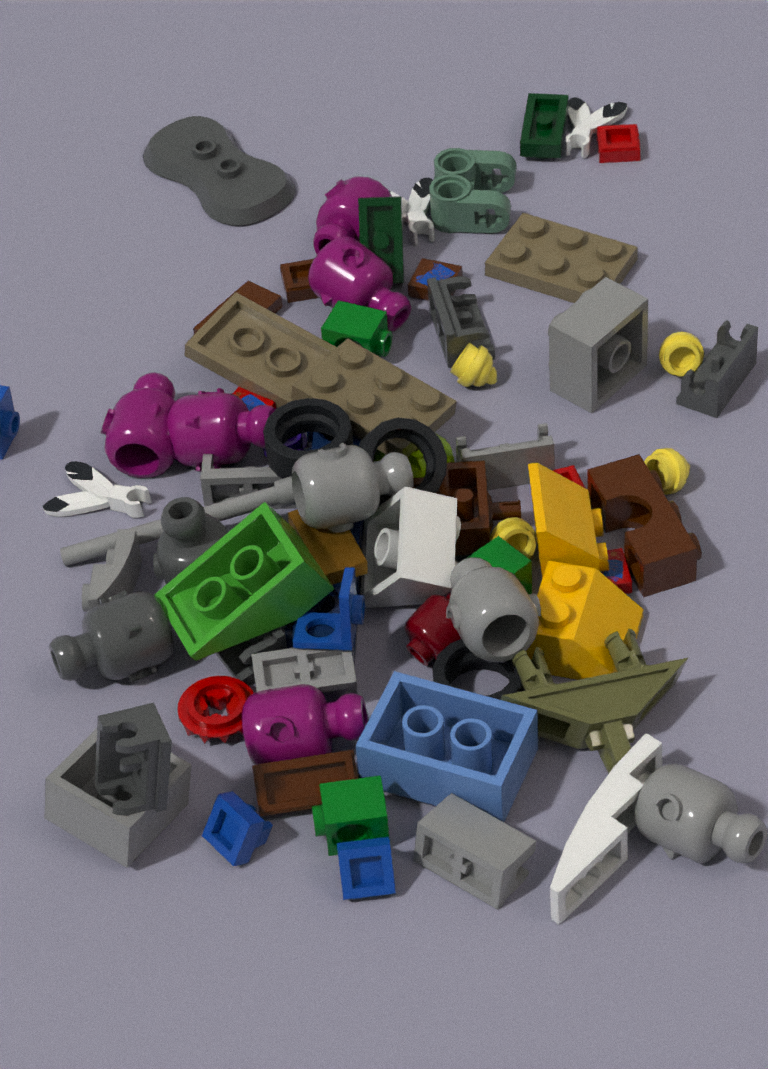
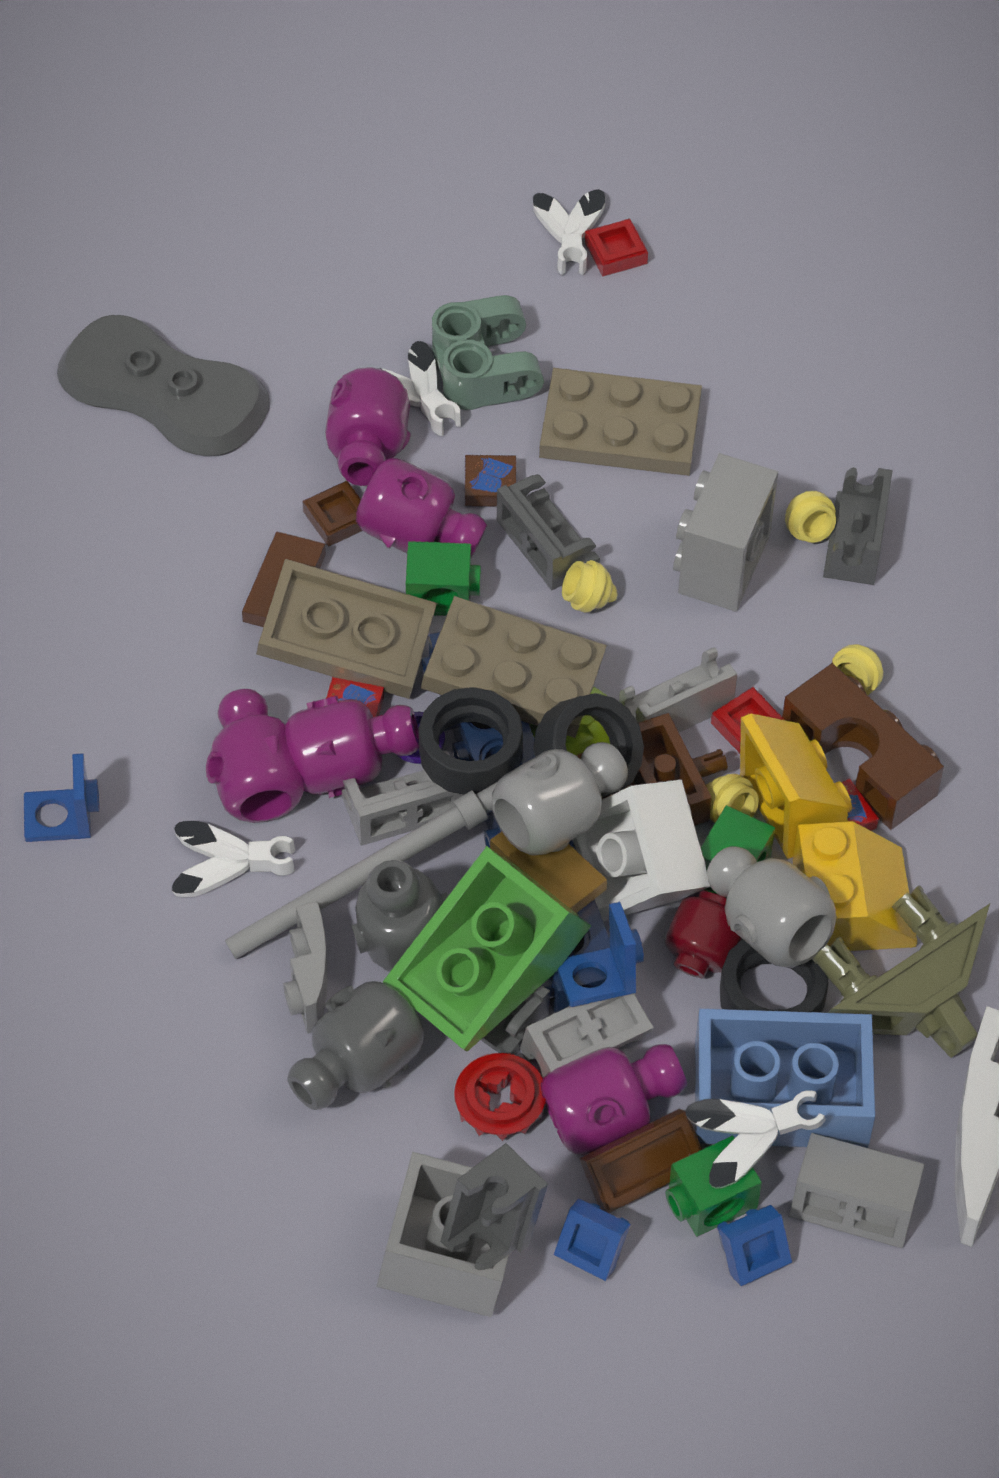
camera: 25 degrees left, 10 degrees up
(383, 231) = (418, 433): dark green plate -> none
(394, 769) = (756, 1131): none -> white piece
(544, 125) = (525, 242): dark green plate -> none

